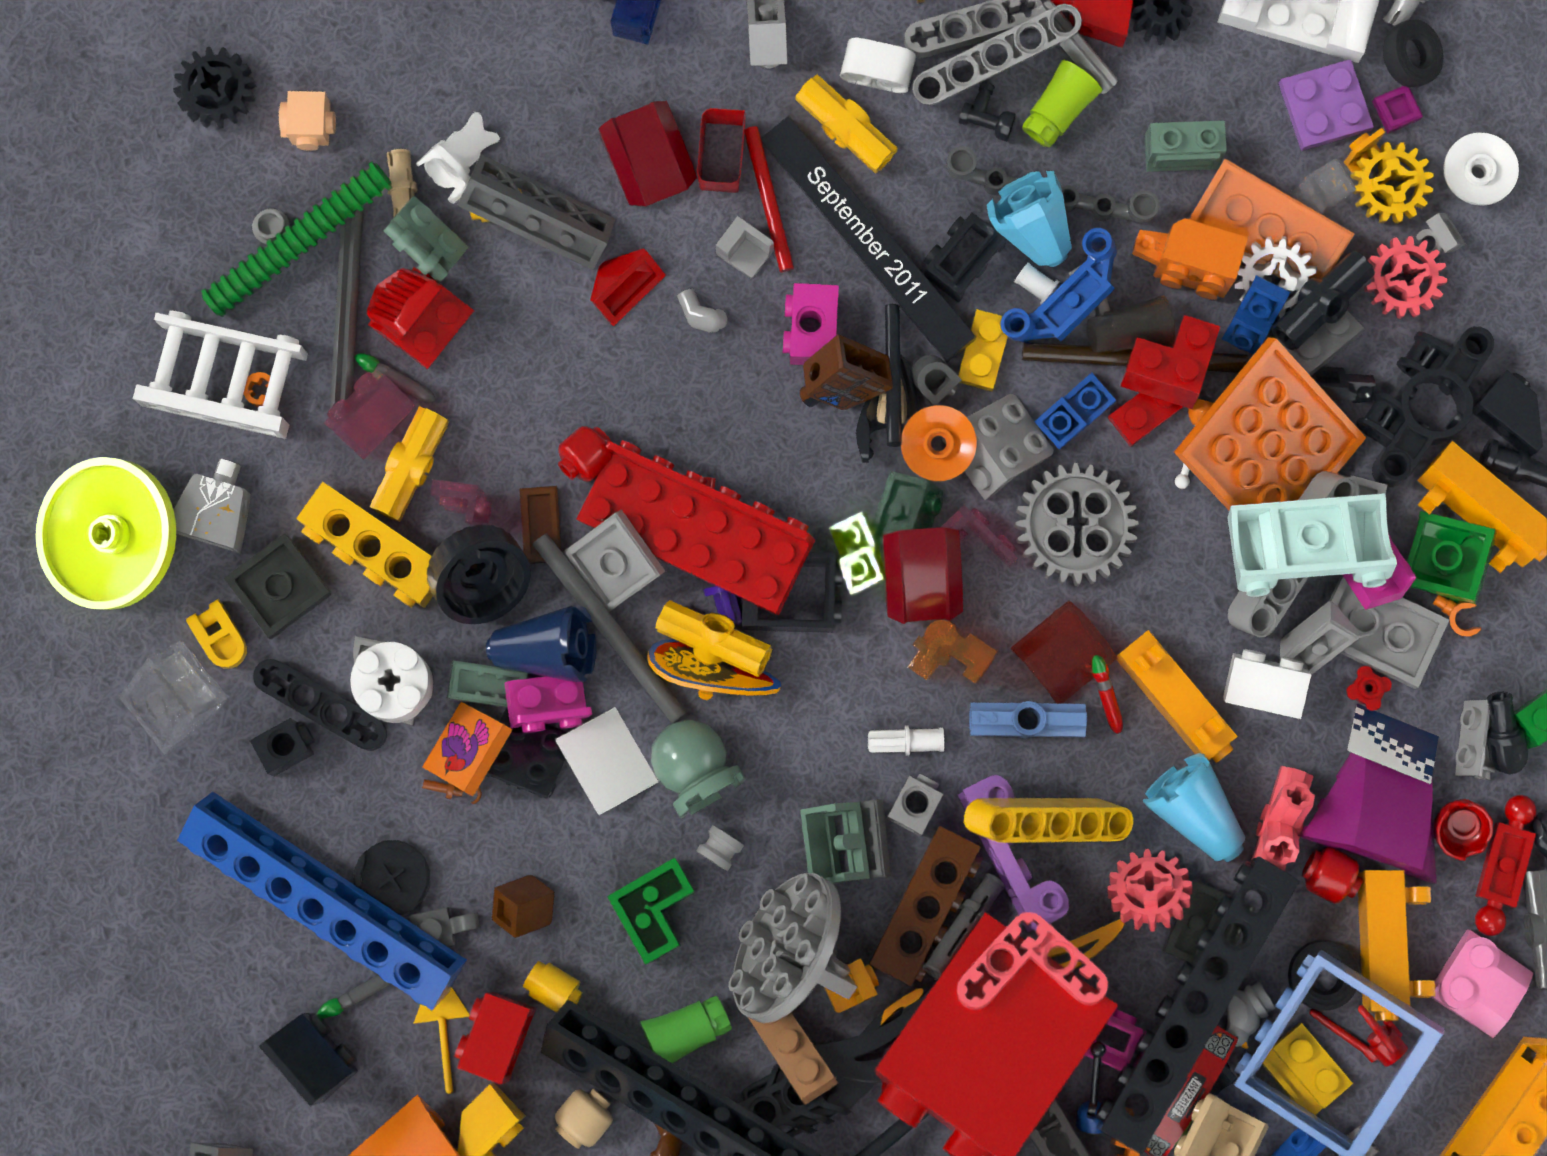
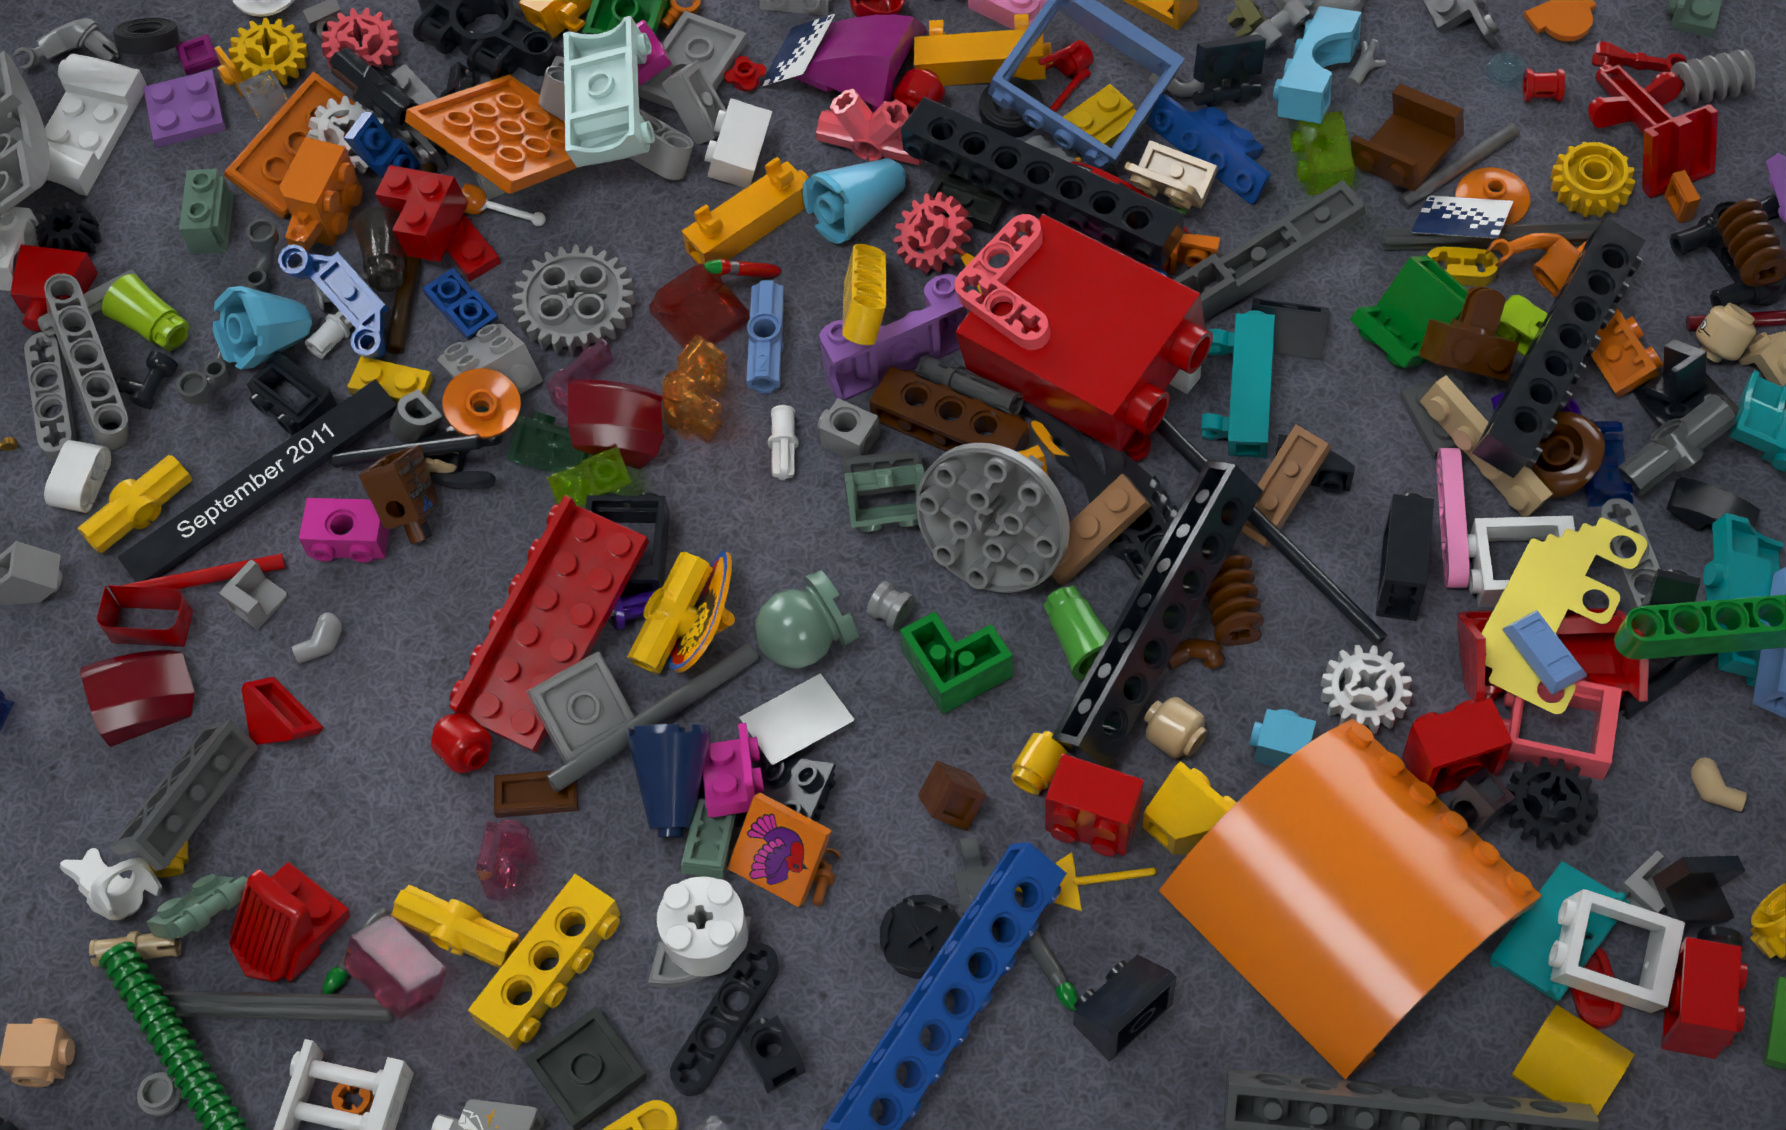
camera: 85 degrees left, 20 degrees down
(469, 559) = (584, 836): black piece -> none

